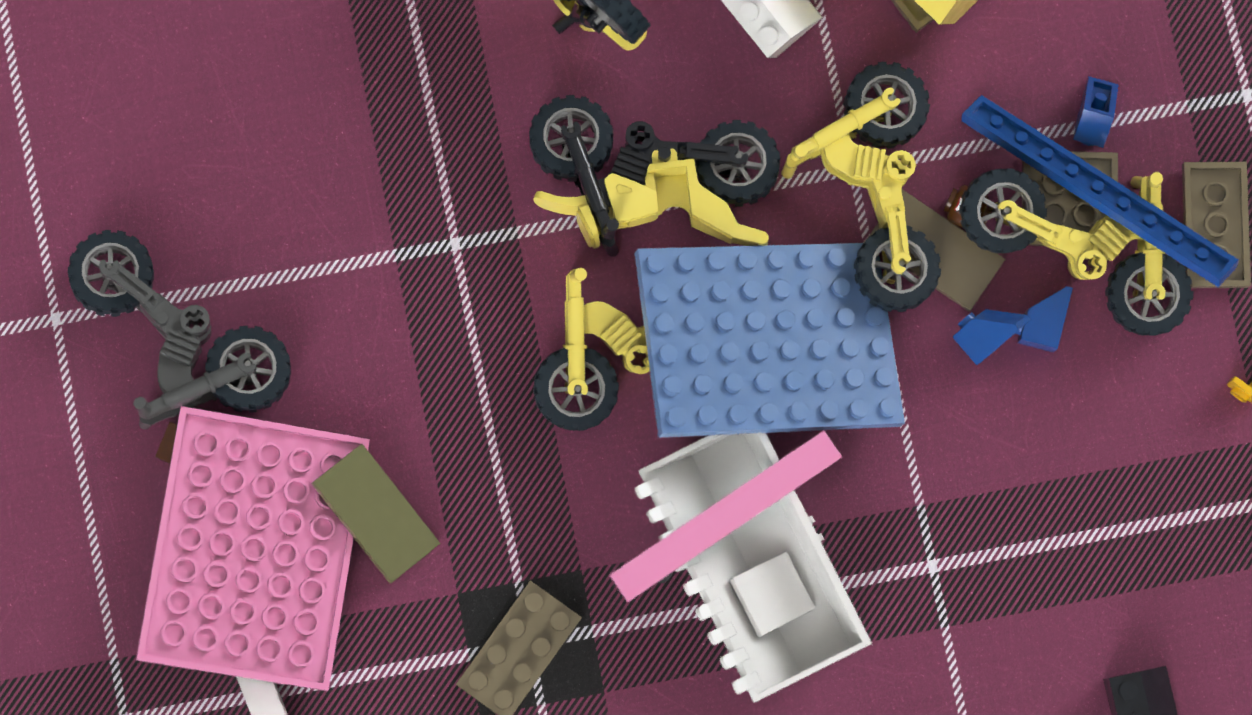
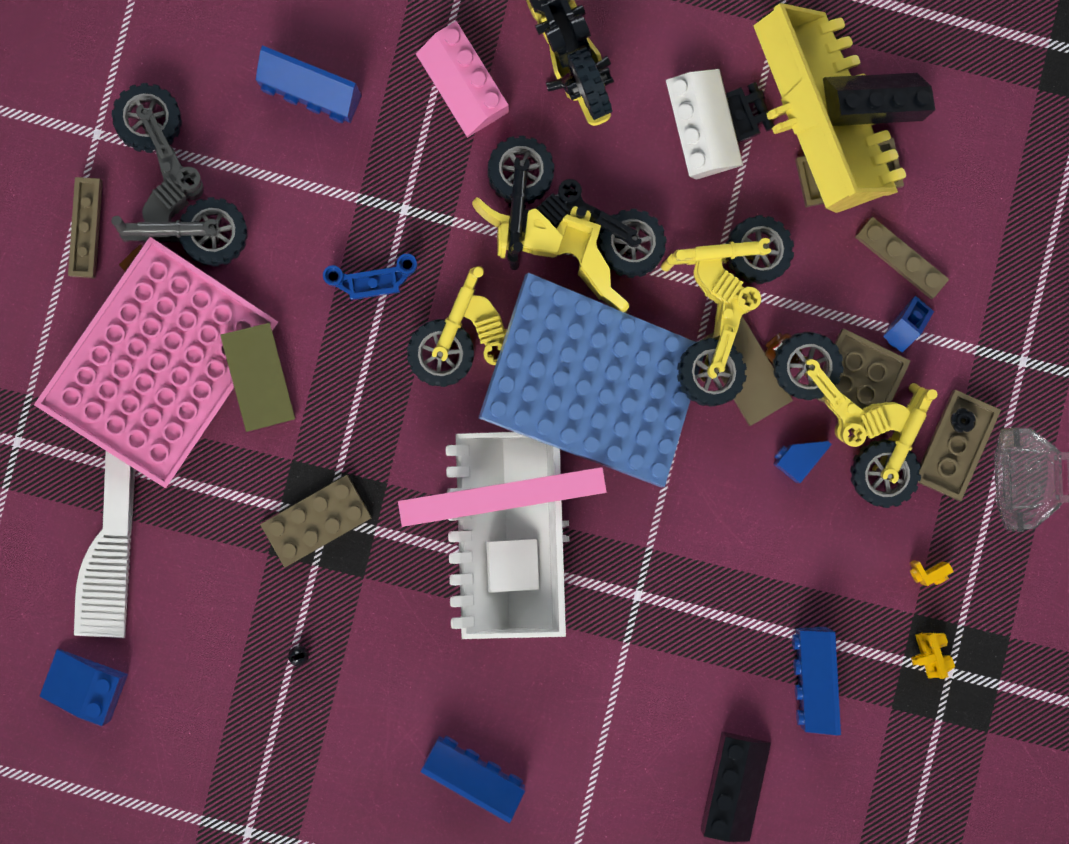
camera: 25 degrees right, 5 degrees up
(93, 433) = (85, 227): none -> dark tan plate
(280, 152) = (307, 85): none -> blue slope
(455, 65) = (462, 79): none -> bright pink slope
(457, 344) = (373, 282): none -> blue plate
(987, 332) = (755, 448): blue slope -> none
(1053, 40) = (902, 258): none -> dark tan plate
(1100, 191) = (886, 385): blue plate -> none
(1183, 565) = (817, 680): none -> blue slope
(1203, 199) = (956, 420): none -> black plate

